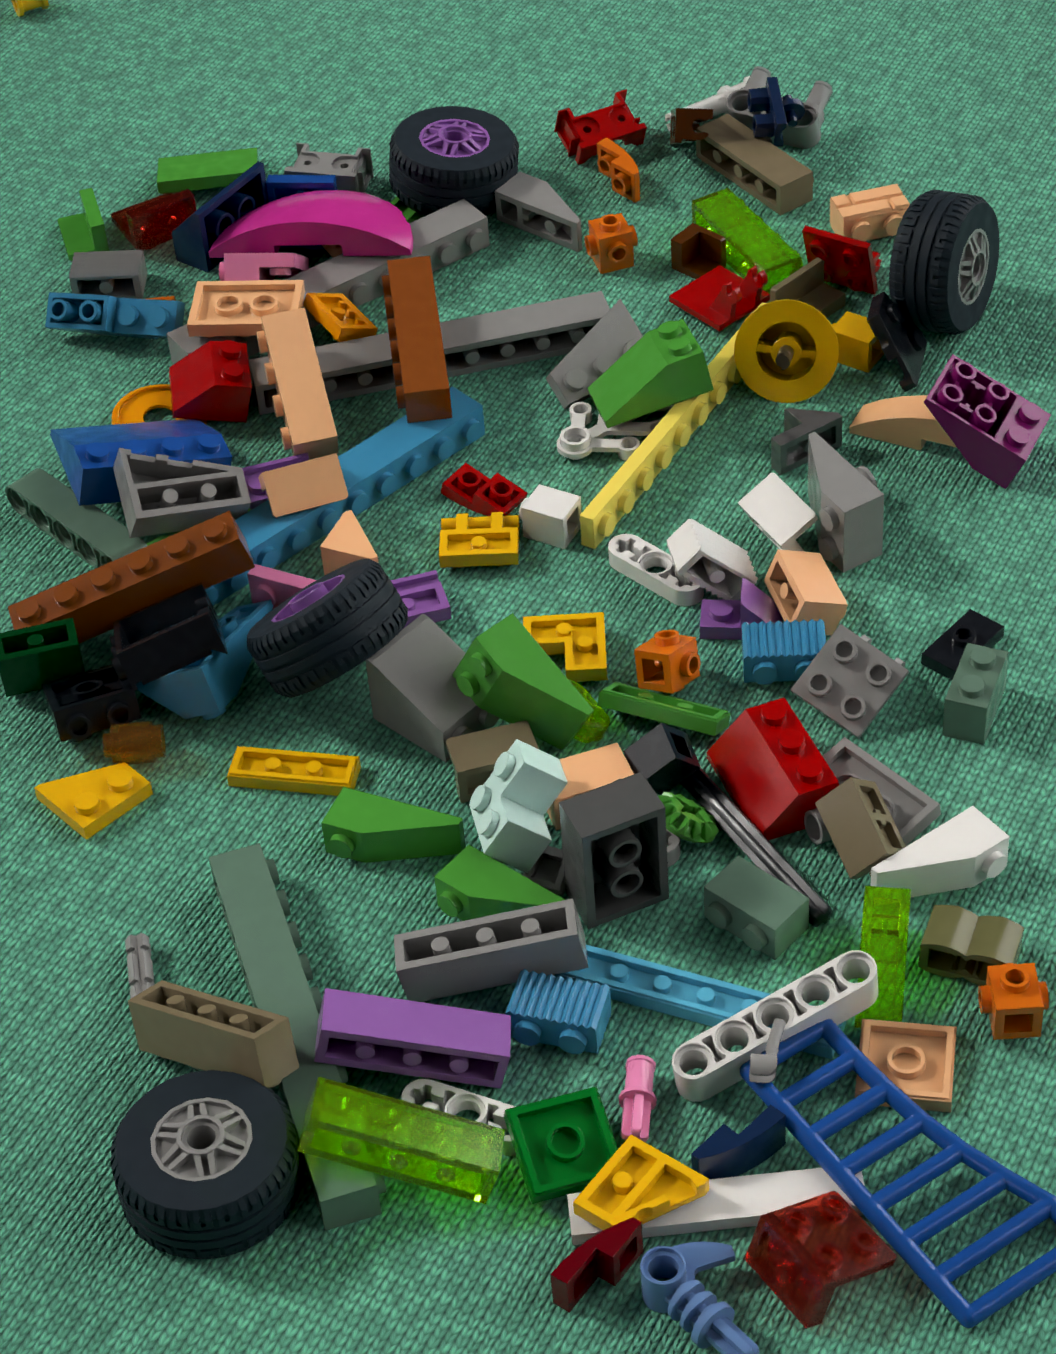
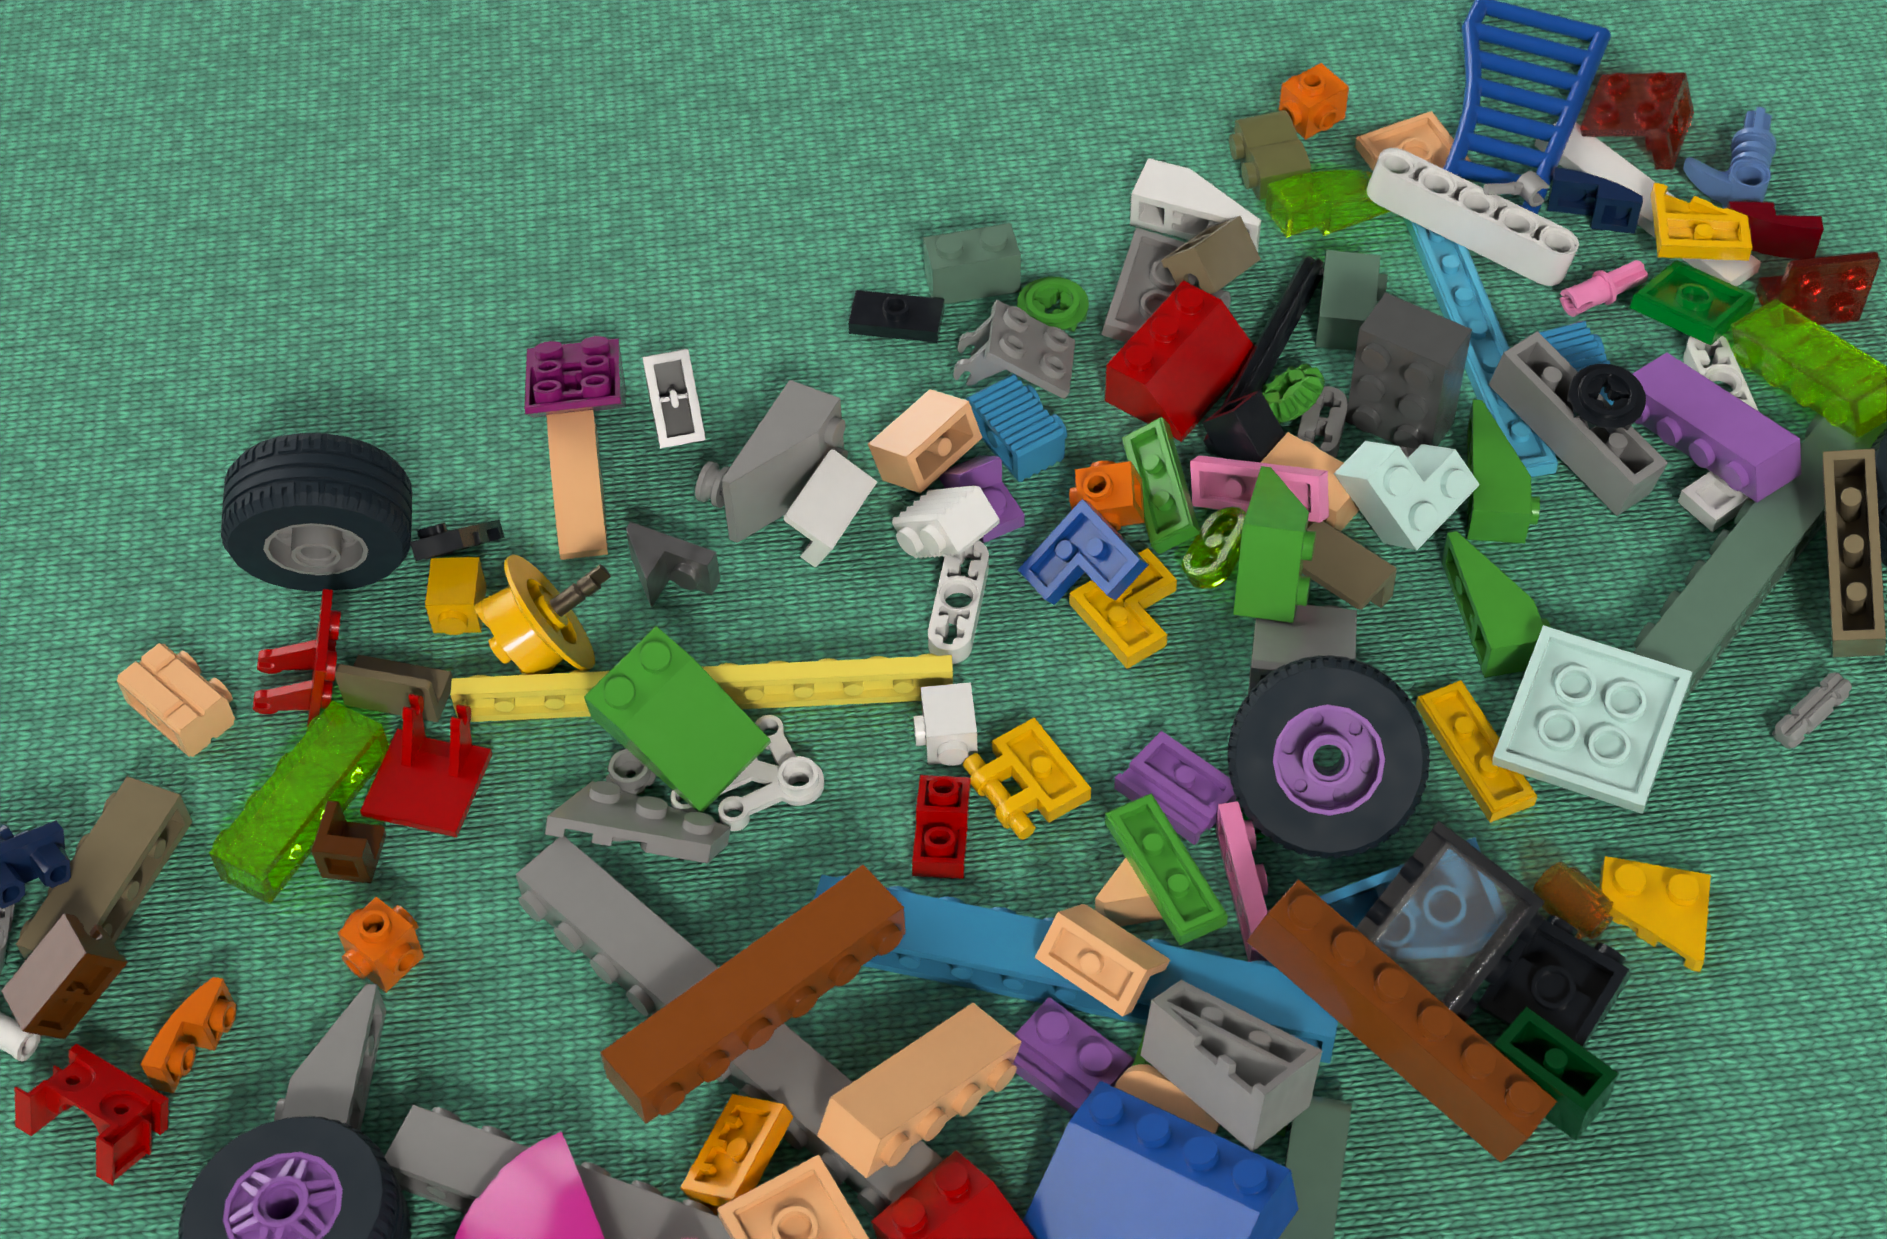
camera: 125 degrees left, 10 degrees up
(236, 803) = (1592, 719): none -> light aqua plate
(336, 540) = (1166, 869): none -> bright green tile
(469, 924) = (1618, 385): none -> black gear
(496, 1240) = (1824, 287): none -> clear red bracket
(588, 734) = (1231, 482): none -> bright pink plate
(630, 620) = (1079, 546): none -> plate
(904, 722) = (1046, 292): none -> bright green gear
(957, 490) = (673, 398): none -> slope

